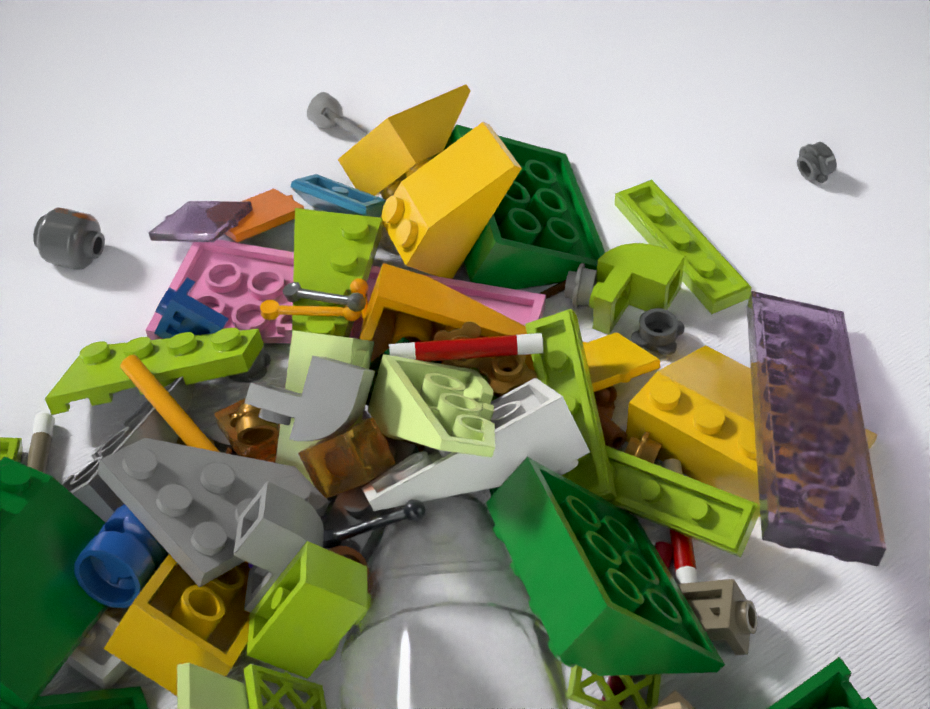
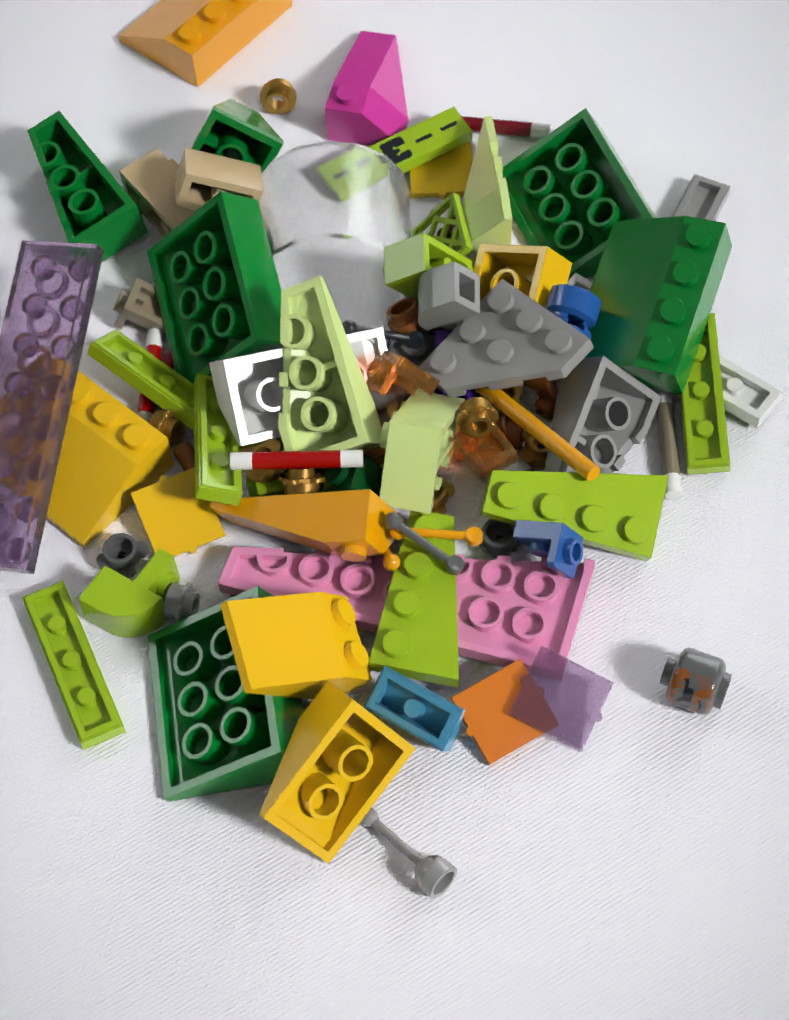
camera: 175 degrees left, 10 degrees up
(329, 401) = (424, 386): light grey brick -> none

